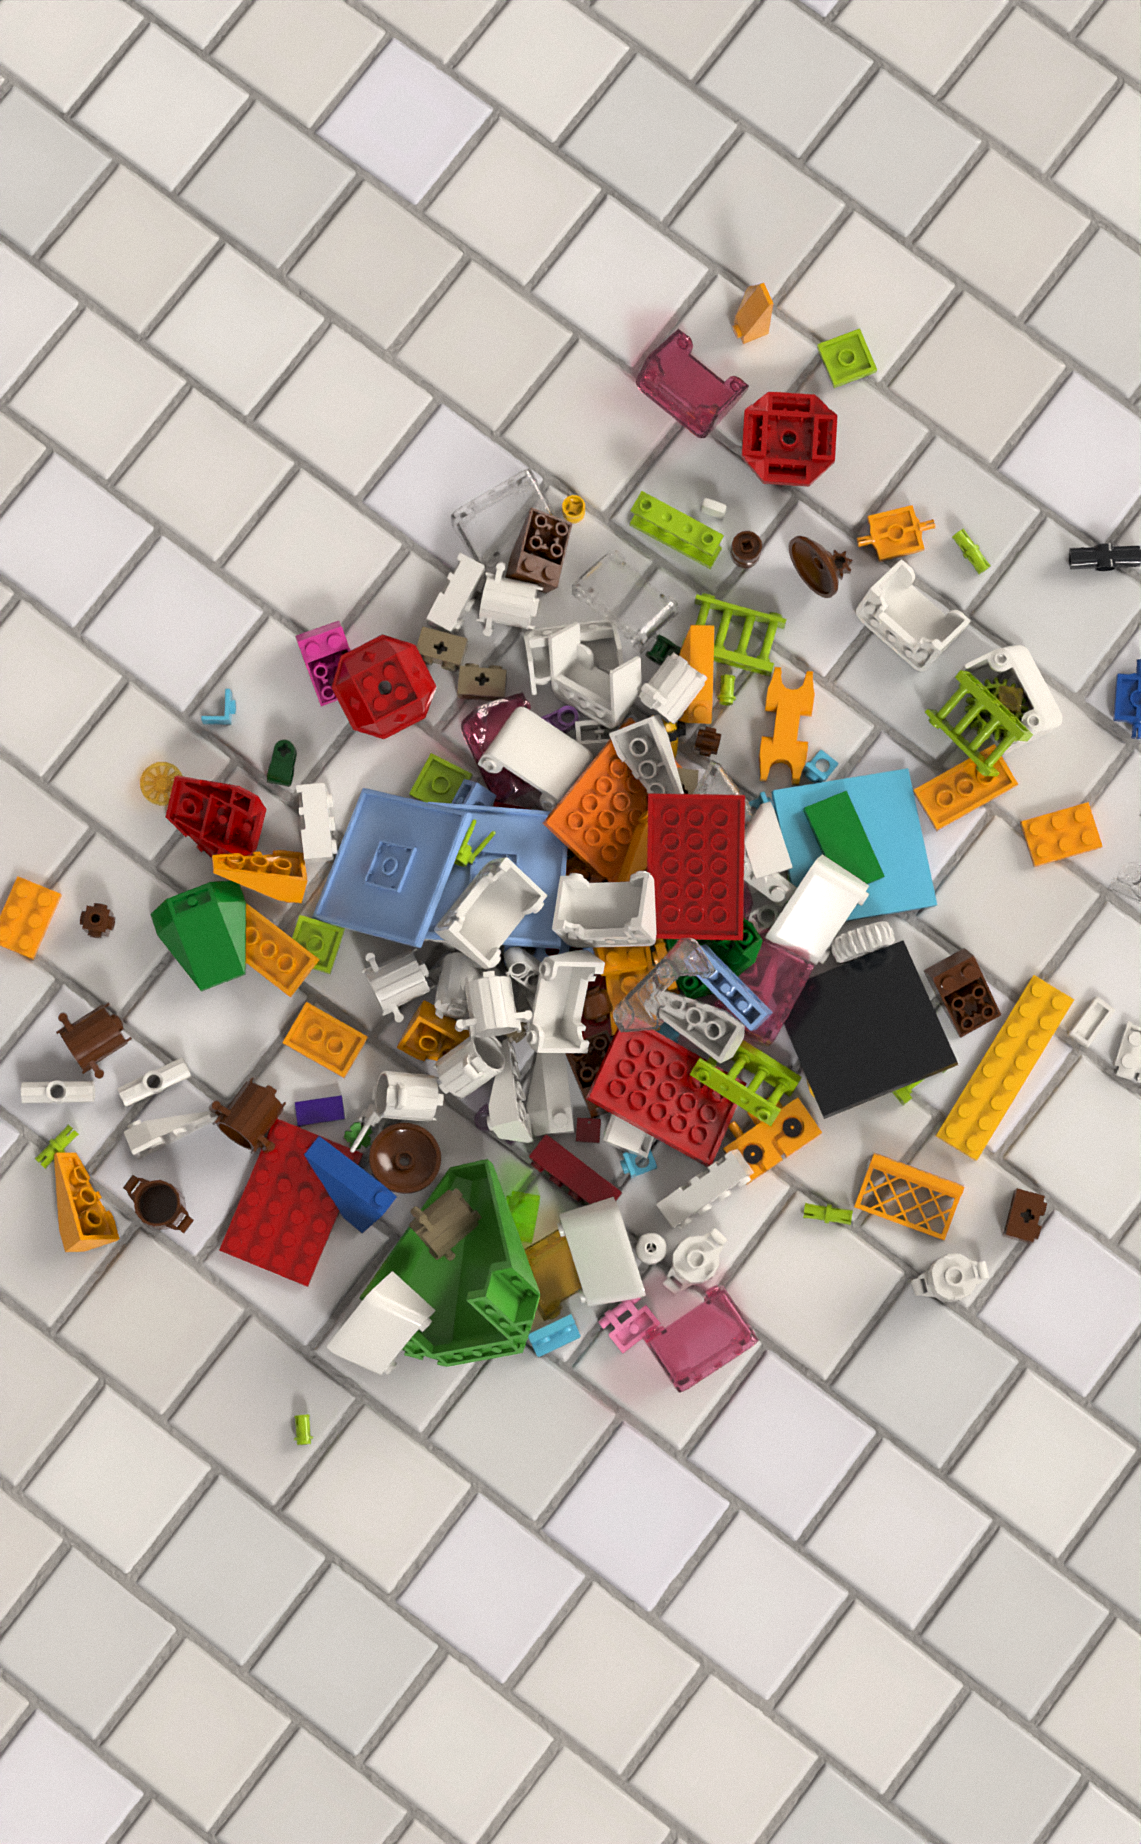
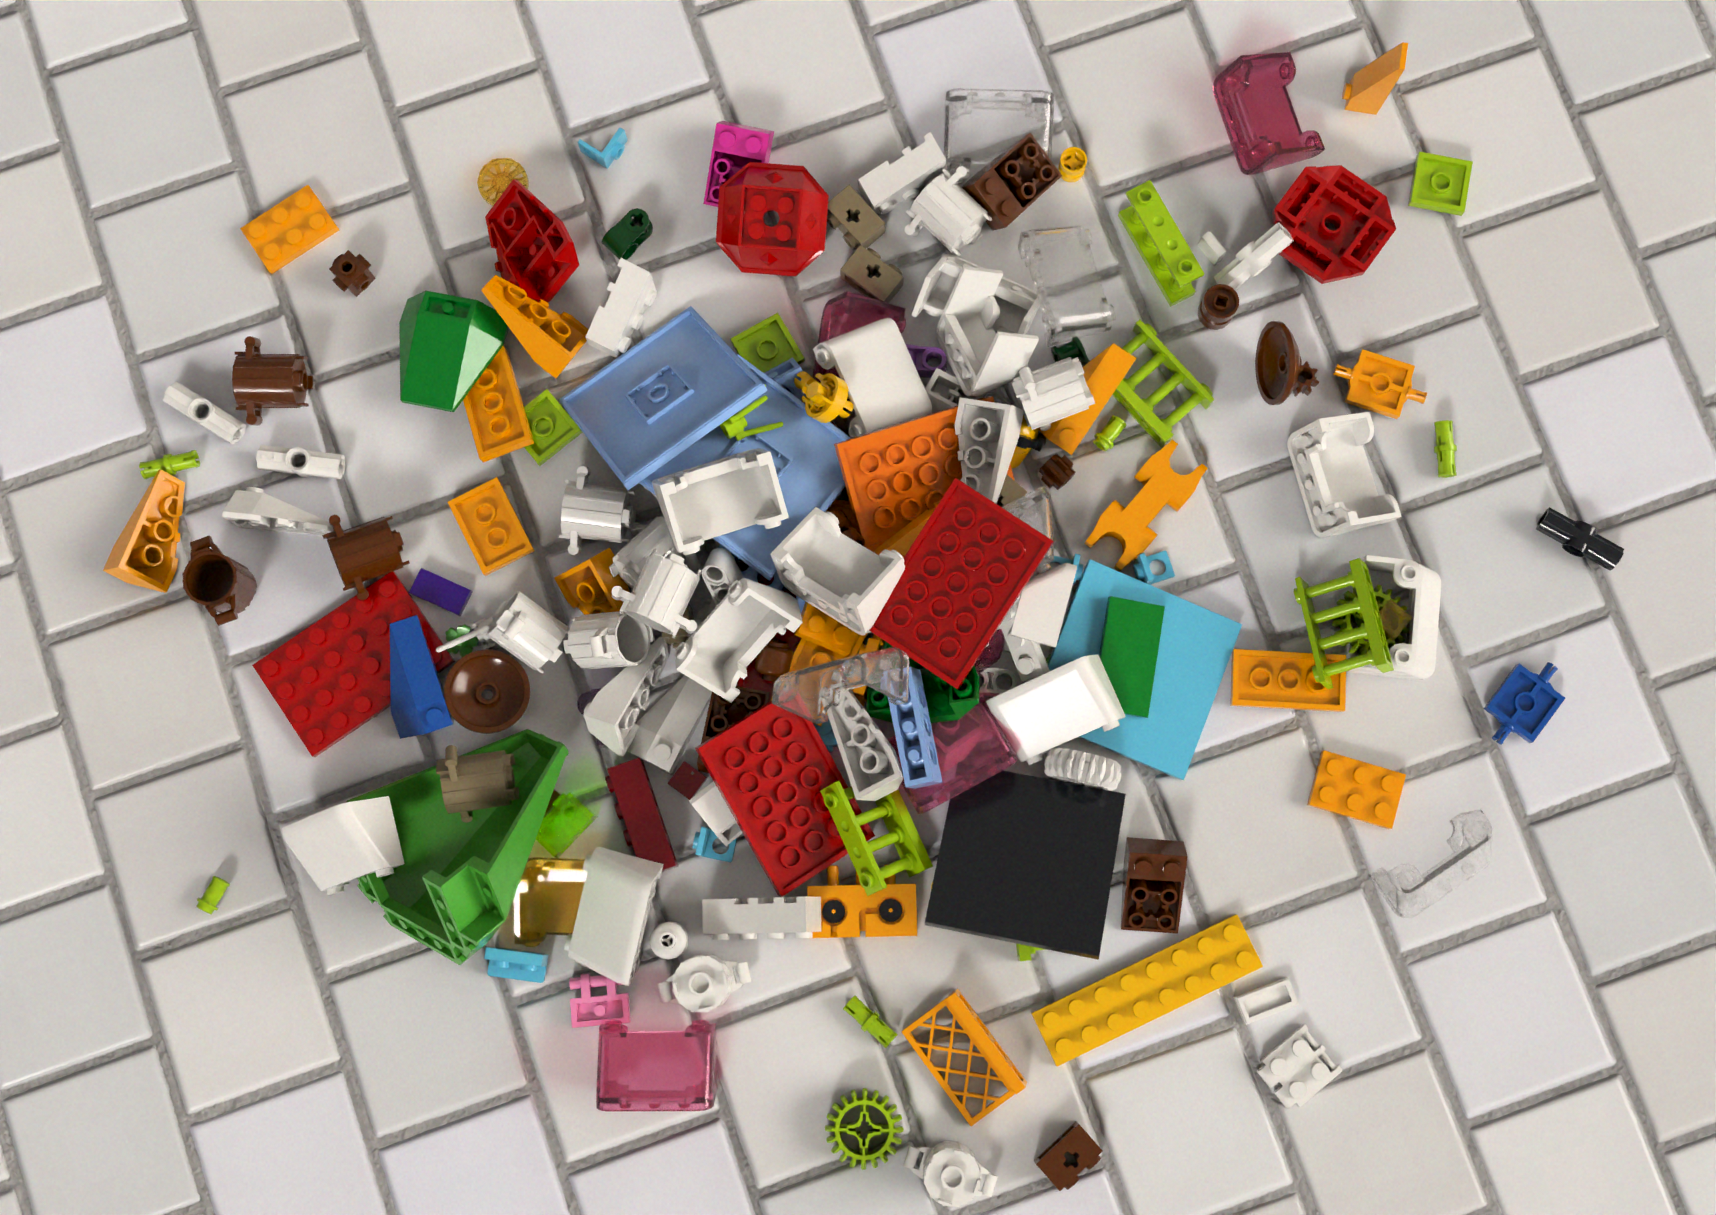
camera: 35 degrees right, 0 degrees up
(509, 793) = (821, 395): none -> yellow pin
(749, 498) = (1255, 257): none -> white piece
(865, 1279) = (850, 1128): none -> lime gear

